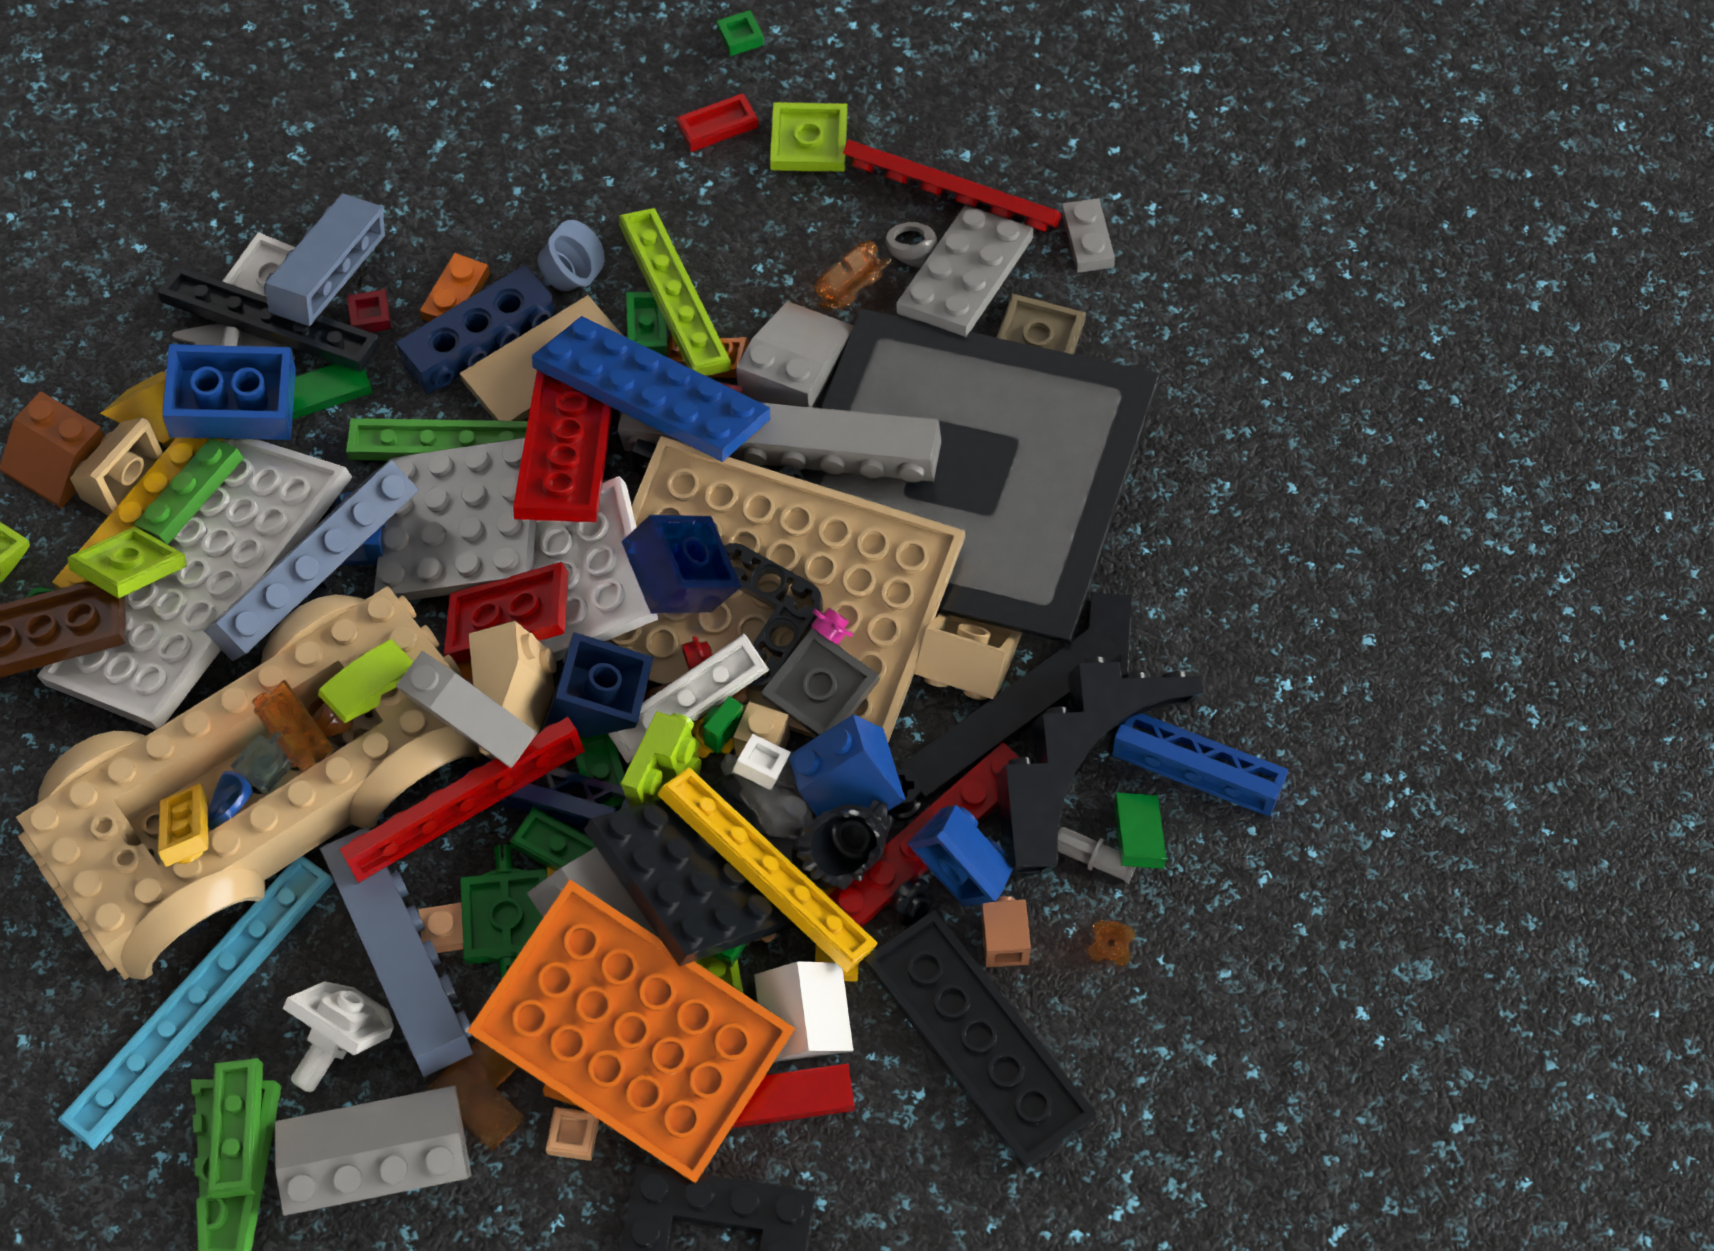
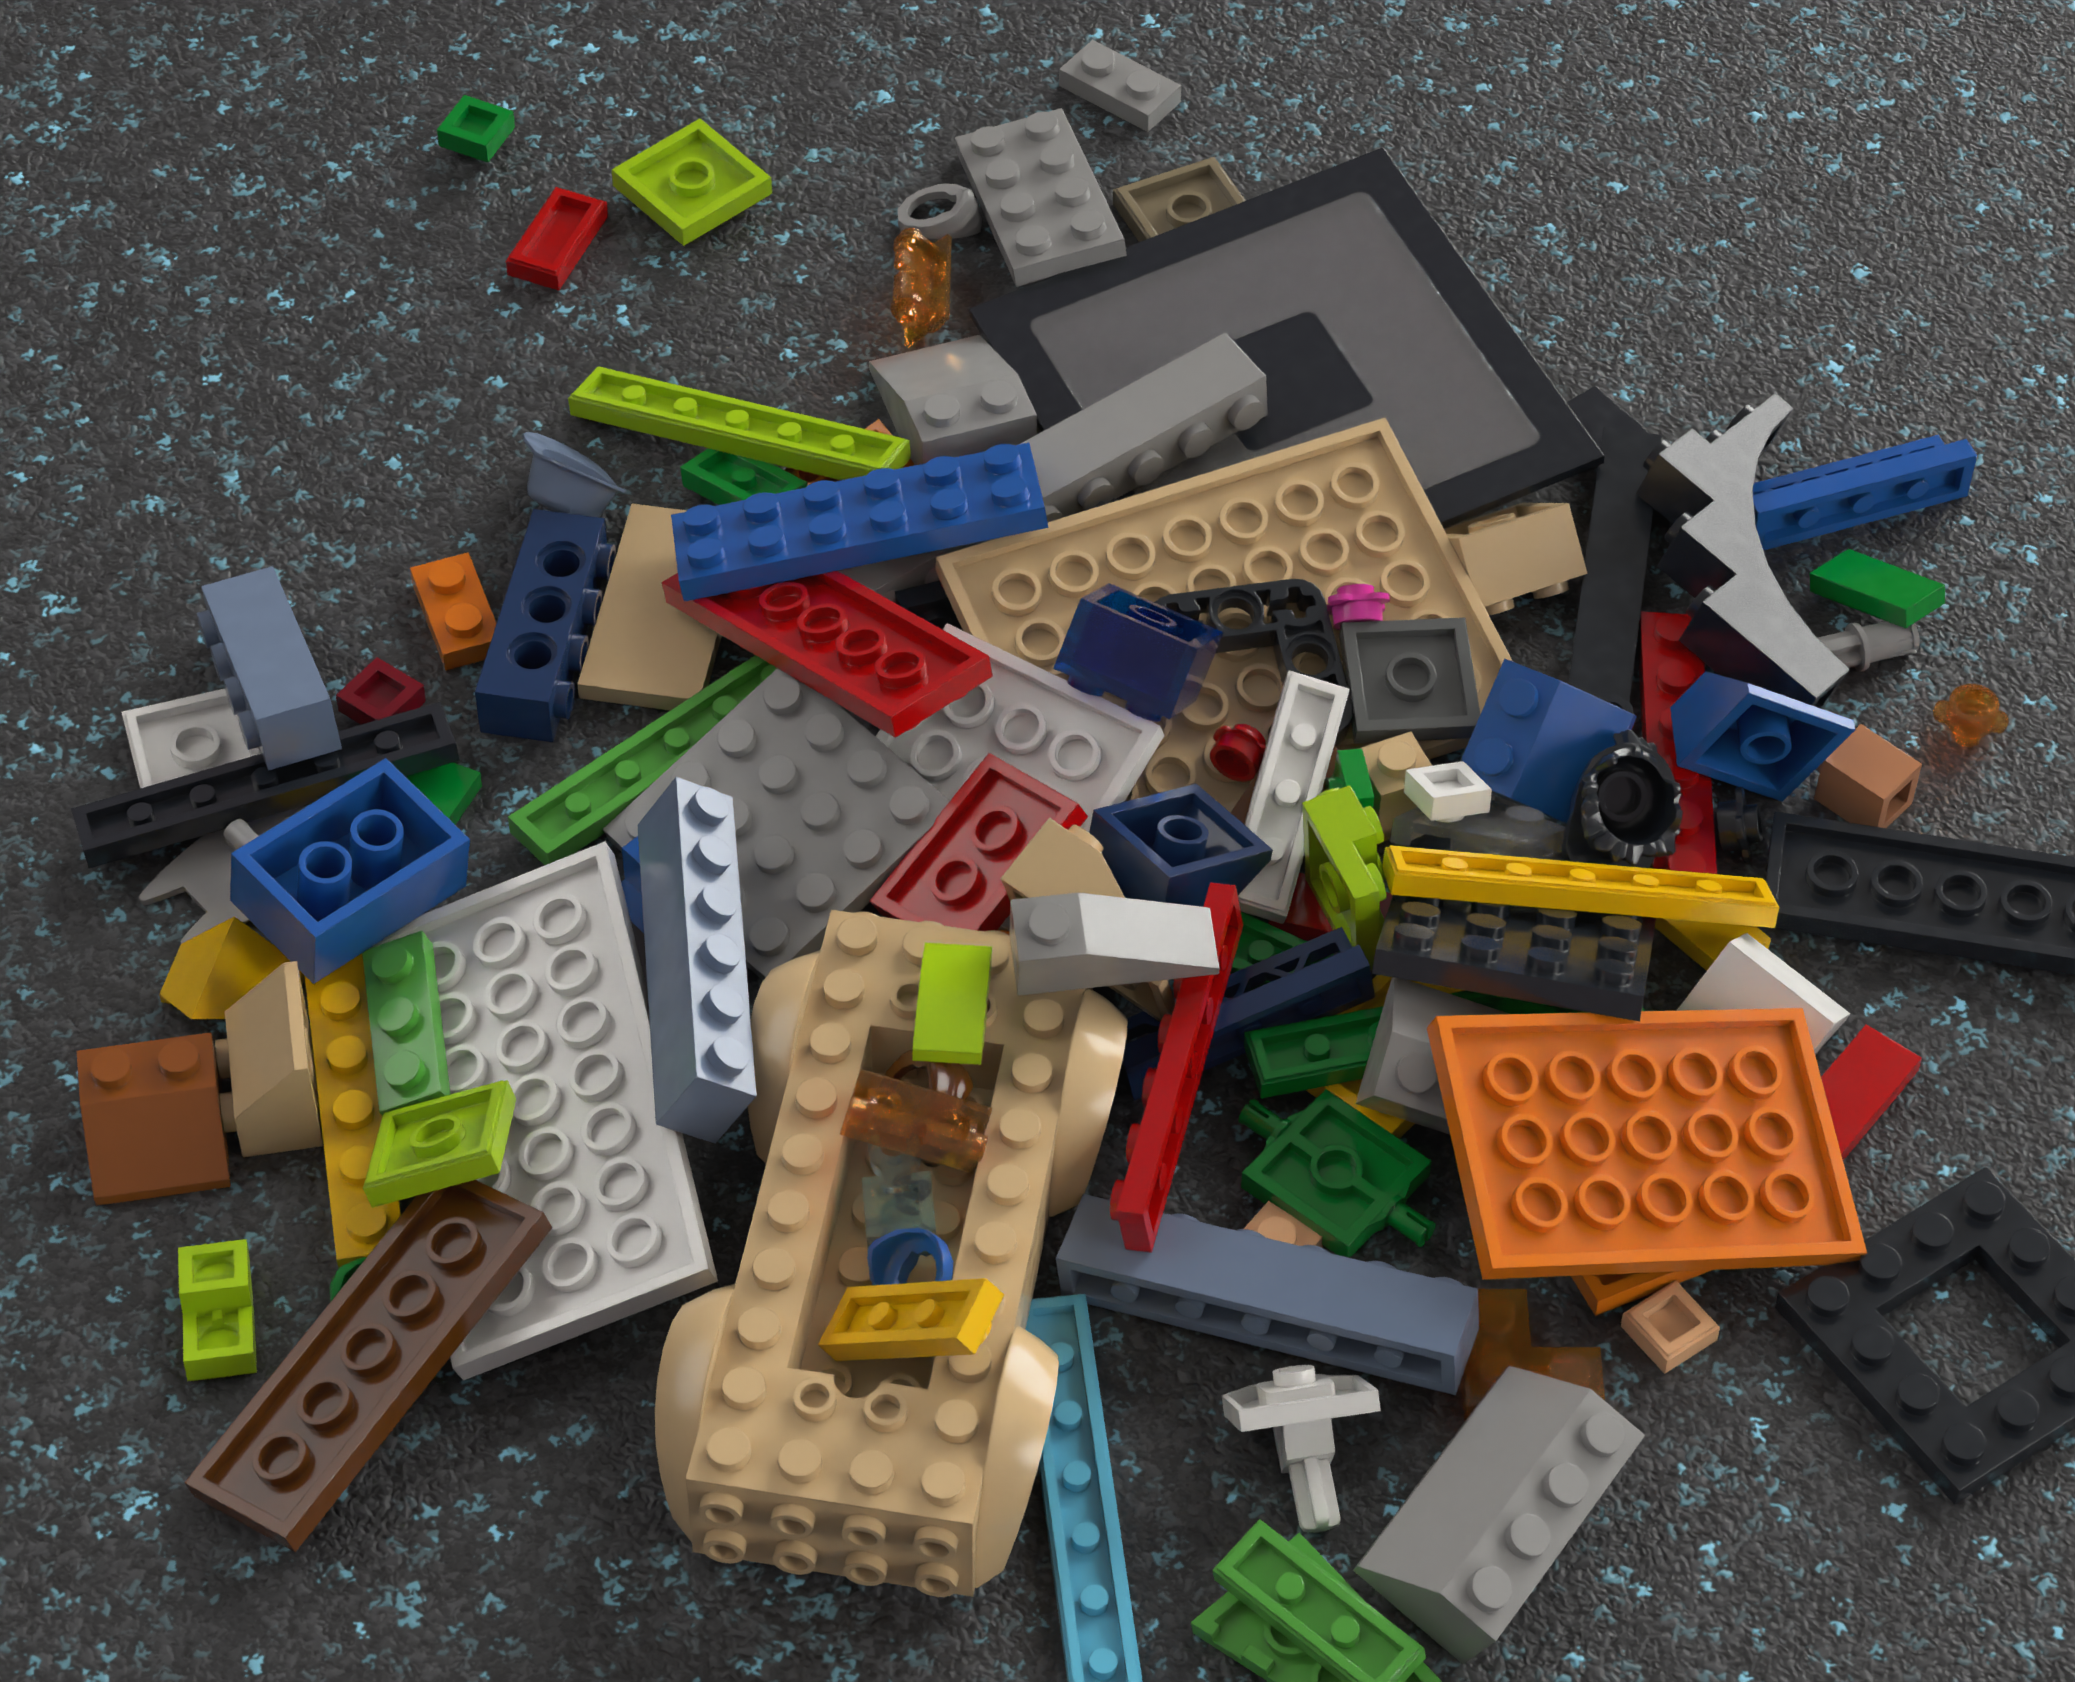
camera: 45 degrees left, 10 degrees down
(966, 191) = (899, 130): red plate -> none

